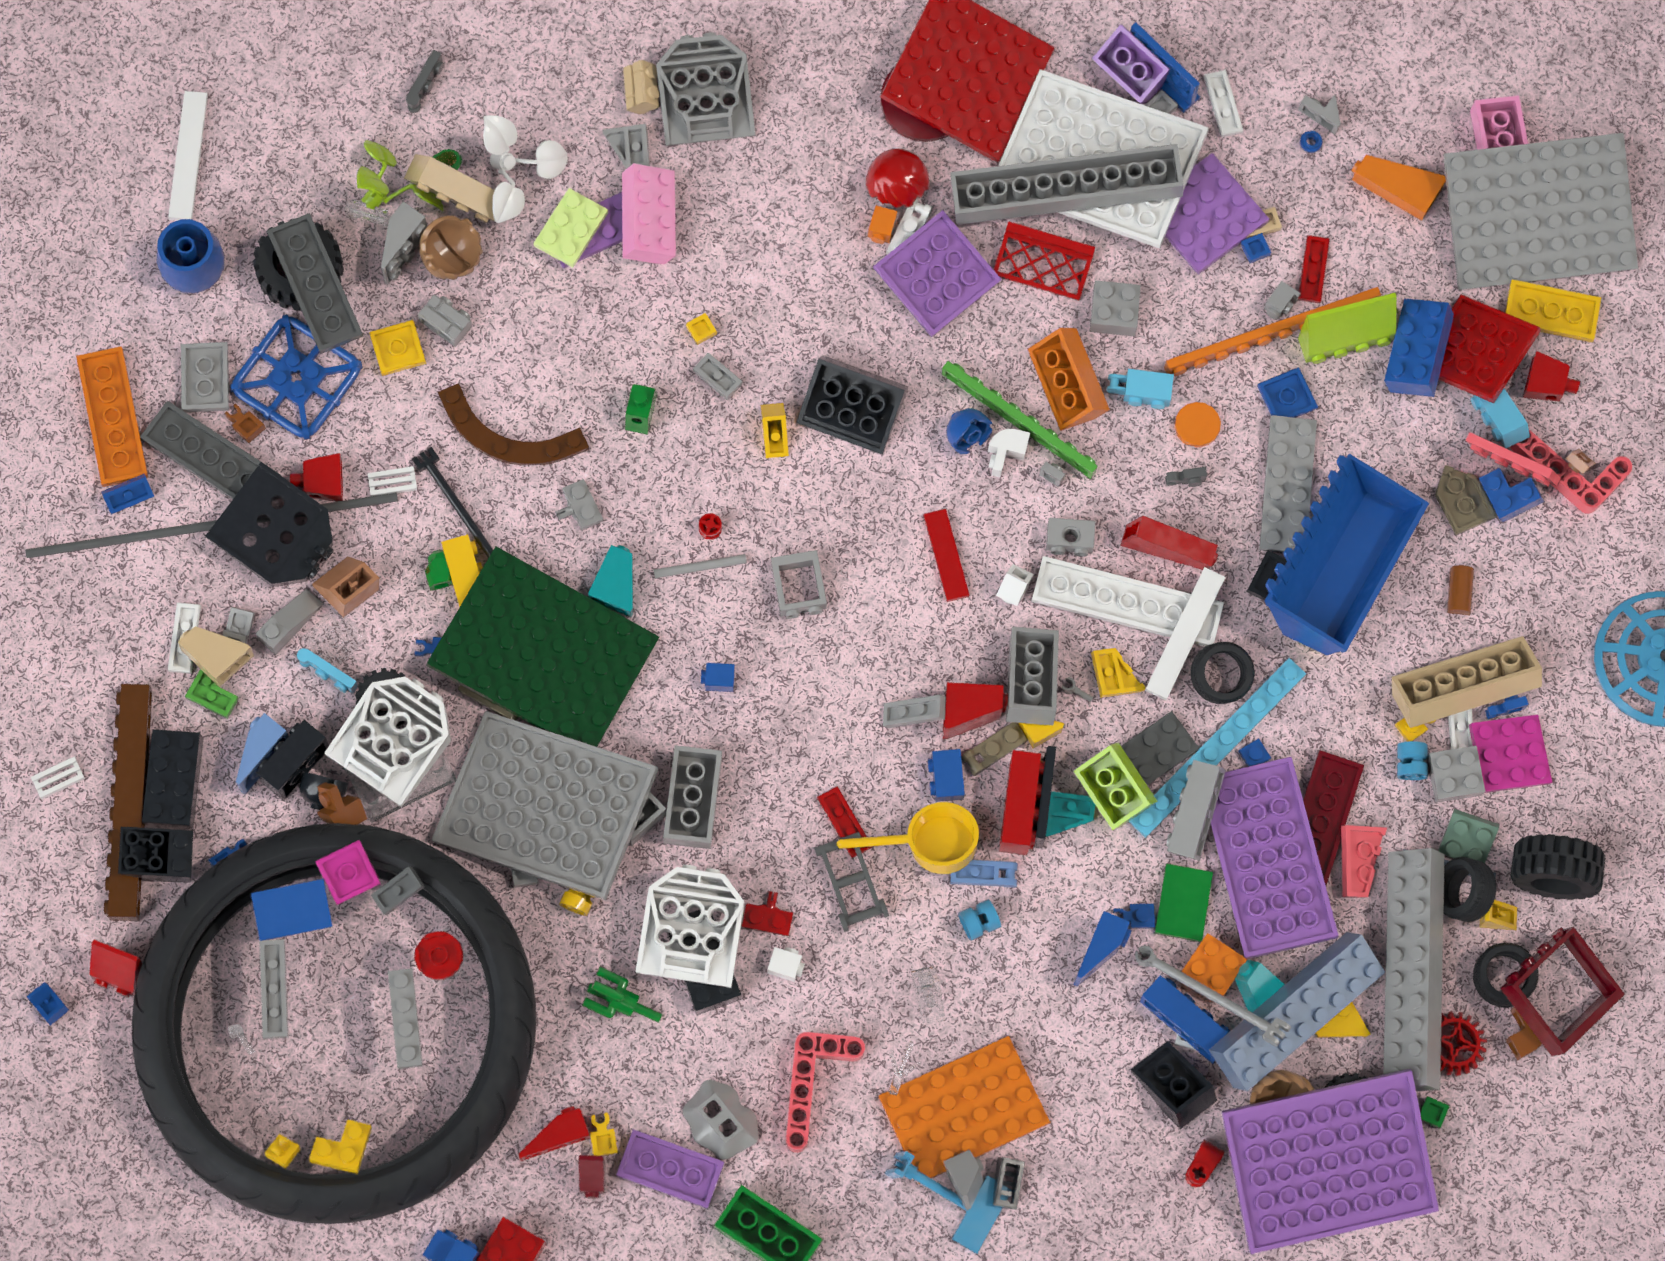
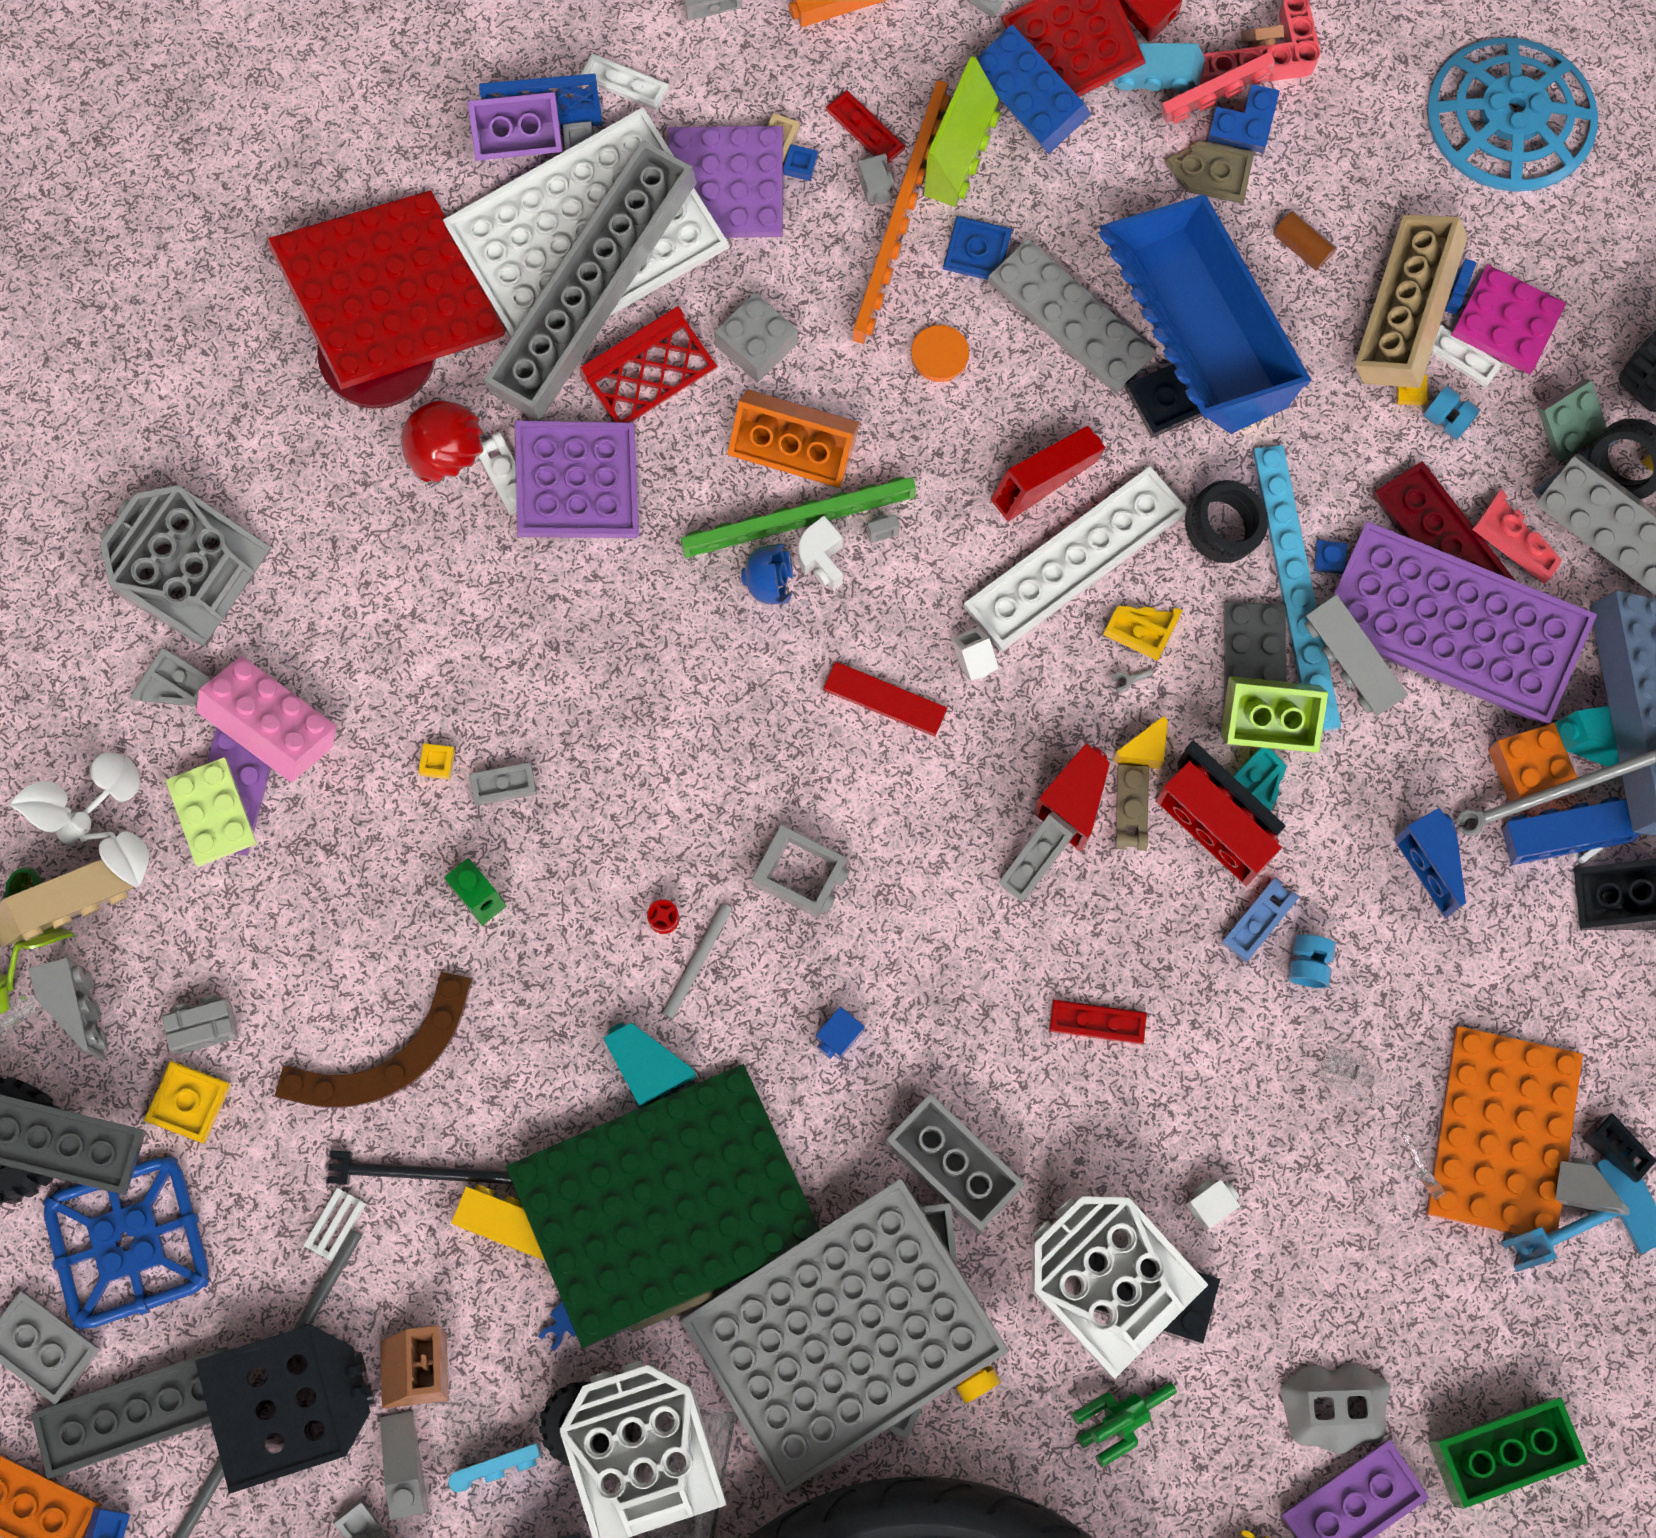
camera: 50 degrees left, 0 degrees up
(246, 425) = (135, 1342): dark orange plate -> none
(321, 478) = (266, 1303): red torso -> none
(437, 571) = (478, 1251): green rock -> none
(450, 247) = (124, 957): medium nougat piece -> none
(580, 505) = (528, 1038): light grey plate -> none
(641, 87) = (118, 621): tan brick -> none
(768, 917) = (1146, 1181): red plate -> none
(774, 430) = (610, 769): yellow slope -> none
(806, 1080) = (1360, 1276): coral beam -> none
(845, 919) = (1220, 1053): dark grey piece -> none
(852, 404) = (647, 669): black slope -> none
(882, 225) = (477, 494): orange brick -> none
(939, 836) = (1198, 935): yellow piece -> none
(947, 775) = (1128, 877): blue brick -> none
(1032, 676) = (1091, 707): light grey brick -> none
(1082, 530) = (969, 545): light grey brick -> none
(1140, 915) = (1420, 797): blue plate -> none
(1143, 387) = (862, 373): medium azure brick -> none
(1183, 902) = (1437, 742): green tile -> none
(1185, 633) = (1157, 527): white tile -> none
(1192, 477) = (992, 398): dark grey plate -> none
(1314, 136) = (728, 25): blue plate -> none
(1456, 774) = (1498, 381): light grey brick -> none

